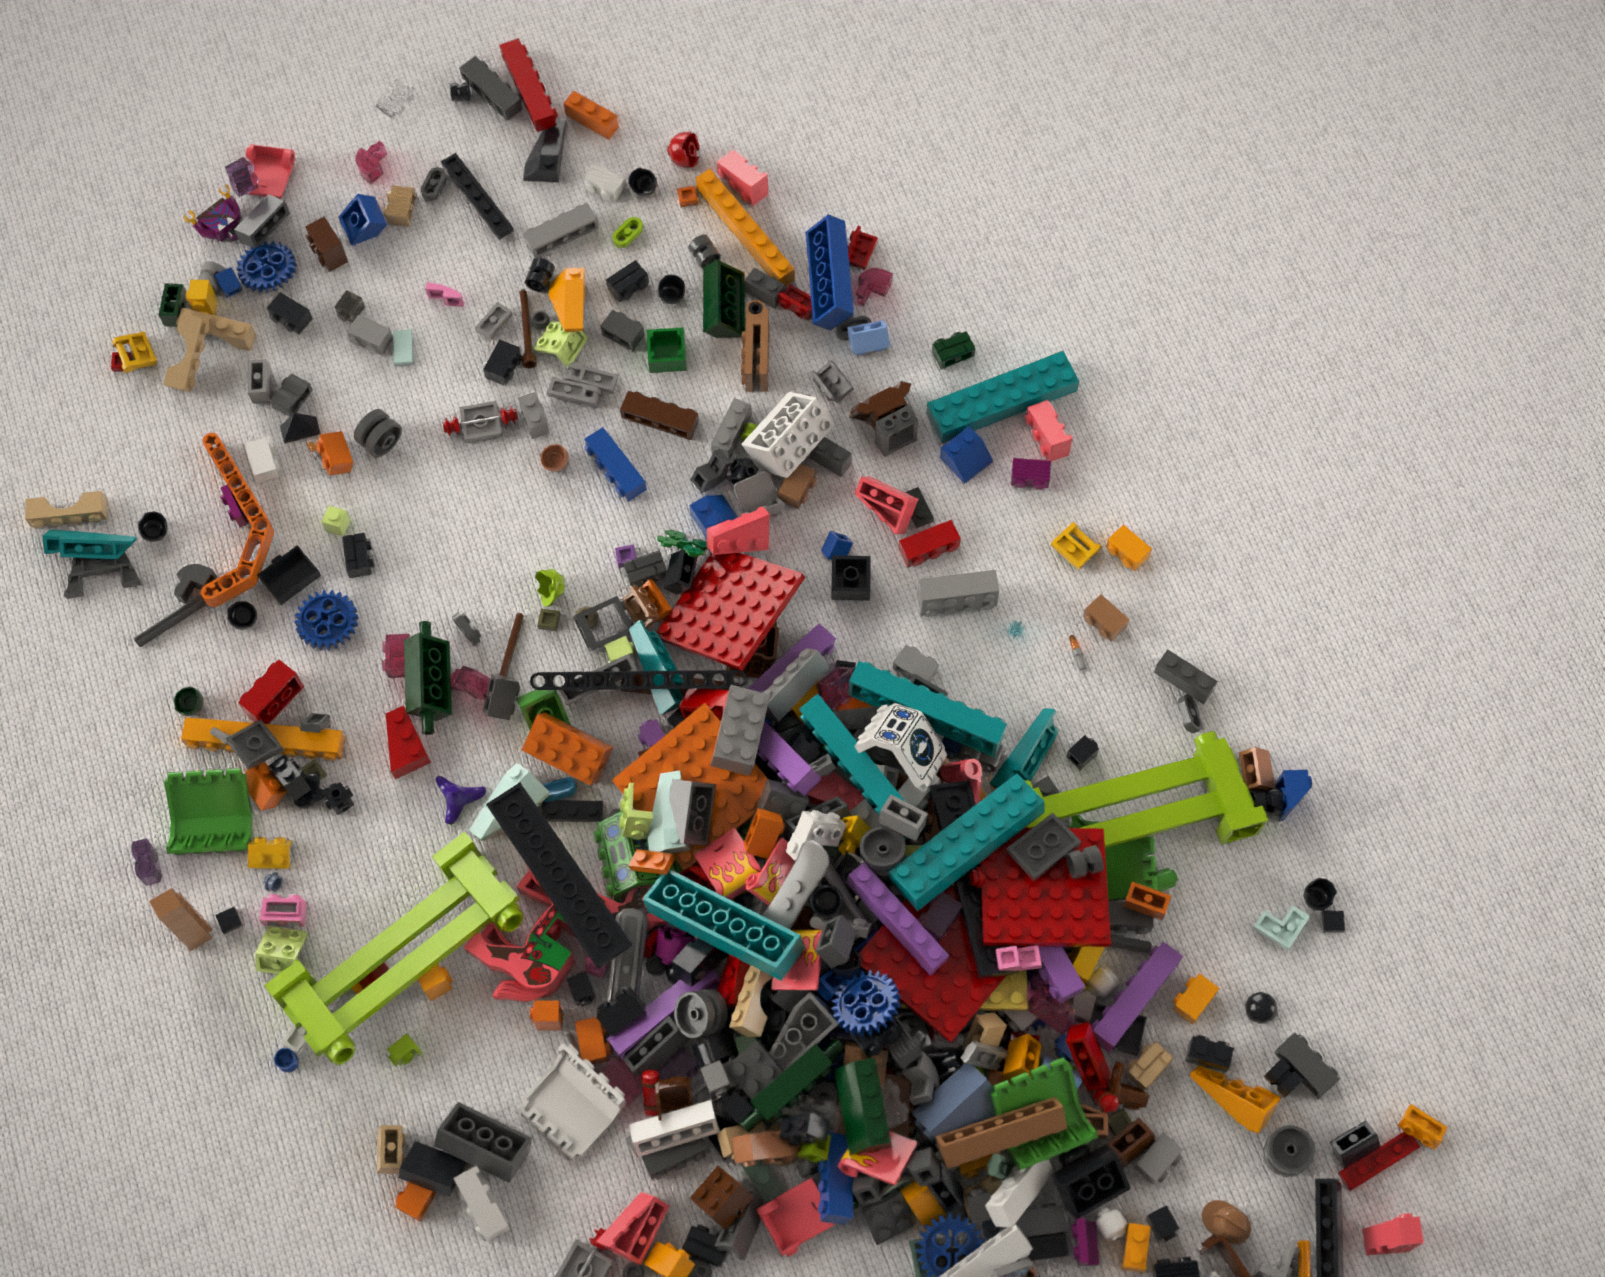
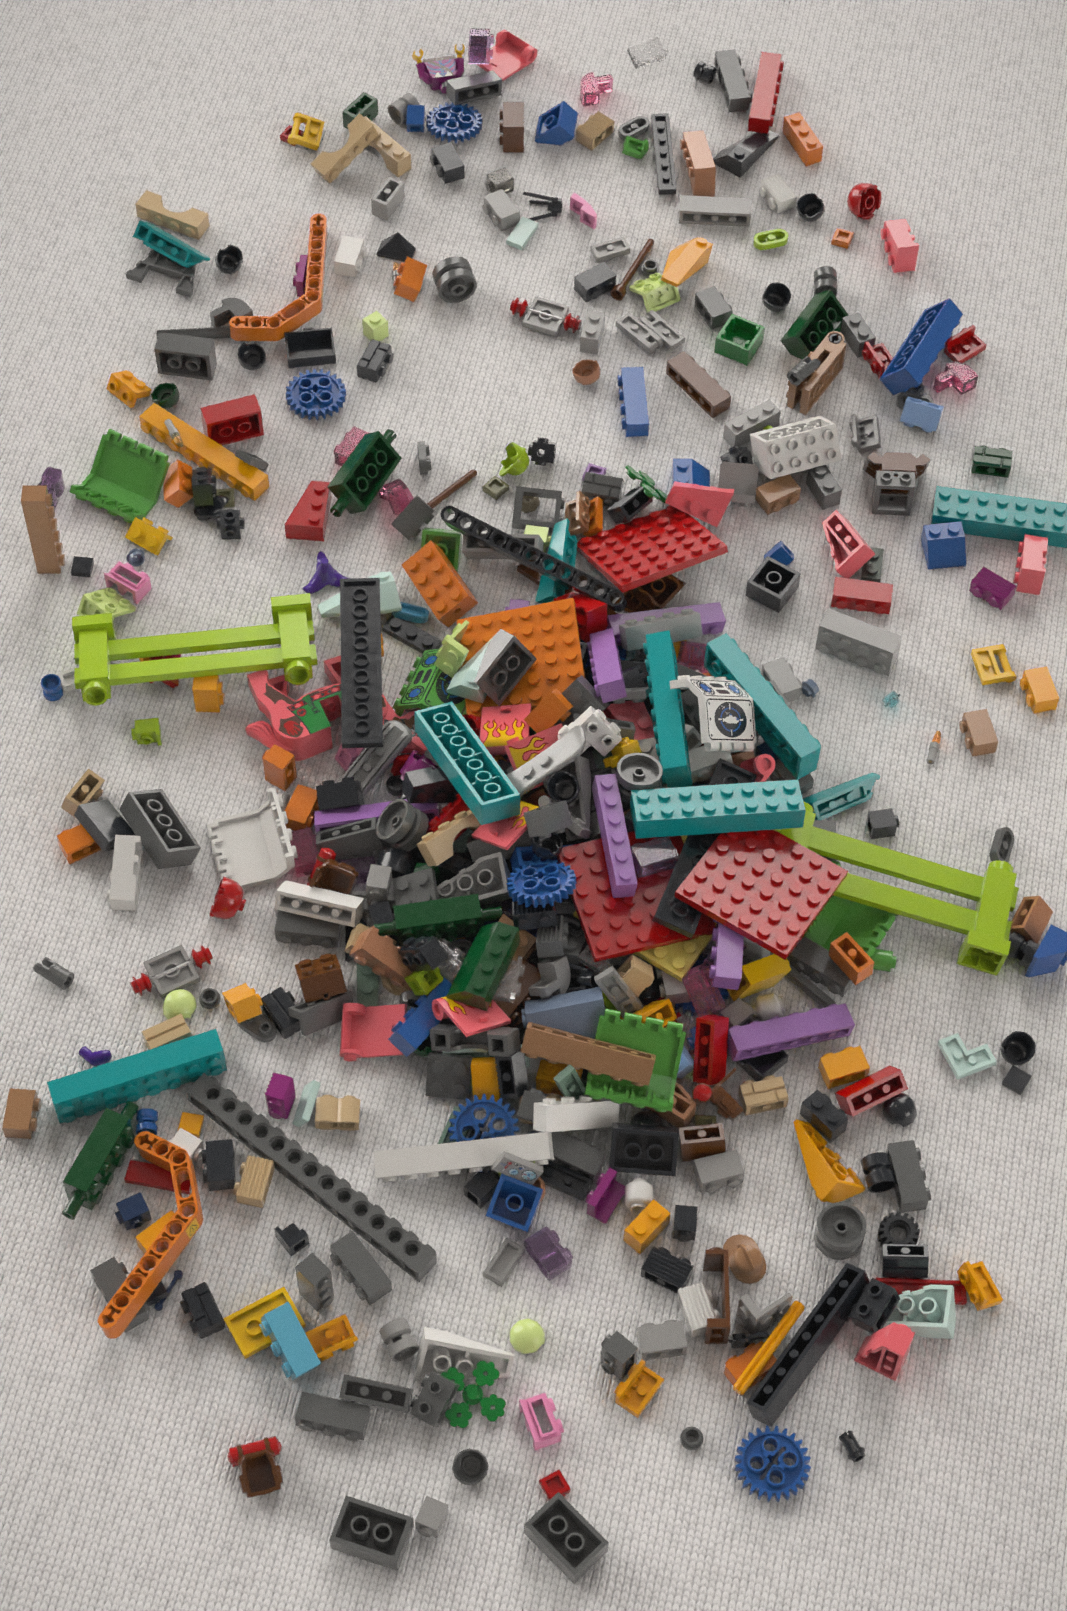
camera: 30 degrees right, 10 degrees down
(146, 713) = (127, 387): none -> light orange bracket
(182, 651) = (185, 356): none -> dark grey brick
(202, 296) = (387, 115): yellow brick -> none
(254, 744) = (192, 446): dark grey tile -> none
(291, 395) = (407, 222): dark grey brick -> none
(414, 304) = (553, 205): none -> black plant
(448, 203) = (635, 147): none -> bright green plate
(517, 190) = (699, 163): none -> nougat wedge
(539, 274) = (672, 233): black wheel -> none
(569, 561) = (549, 451): none -> black brick
(581, 989) = (321, 766): black brick -> none
(587, 1171) = (227, 899): none -> red cylinder
(627, 281) = (744, 274): black brick -> none
(635, 1228) = (233, 962): coral wedge -> none
(651, 862) = (443, 691): orange plate -> none
(712, 473) = (709, 449): dark grey brick -> none
(740, 730) = (585, 628): light grey brick -> none
(744, 228) = (873, 282): light orange brick -> none
(750, 358) = (802, 370): none -> dark grey hinge
(903, 817) = (671, 753): light grey brick -> none
(942, 658) = (809, 688): none -> sand blue plate
(977, 877) = (706, 842): red plate -> none
(1018, 959) = (698, 925): bright pink slope -> none
(1043, 846) = (781, 849): dark grey plate -> none
(1082, 862) = (801, 875): dark grey wheel -> none
(1185, 676) = (1018, 814): dark grey brick -> none
(1232, 1007) = (871, 1090): none -> red brick
(1339, 1111) = (898, 1221): none -> black tyre
(1358, 1202) = (874, 1306): none -> black brick
(1391, 1182) = (927, 1311): none -> light aqua wedge

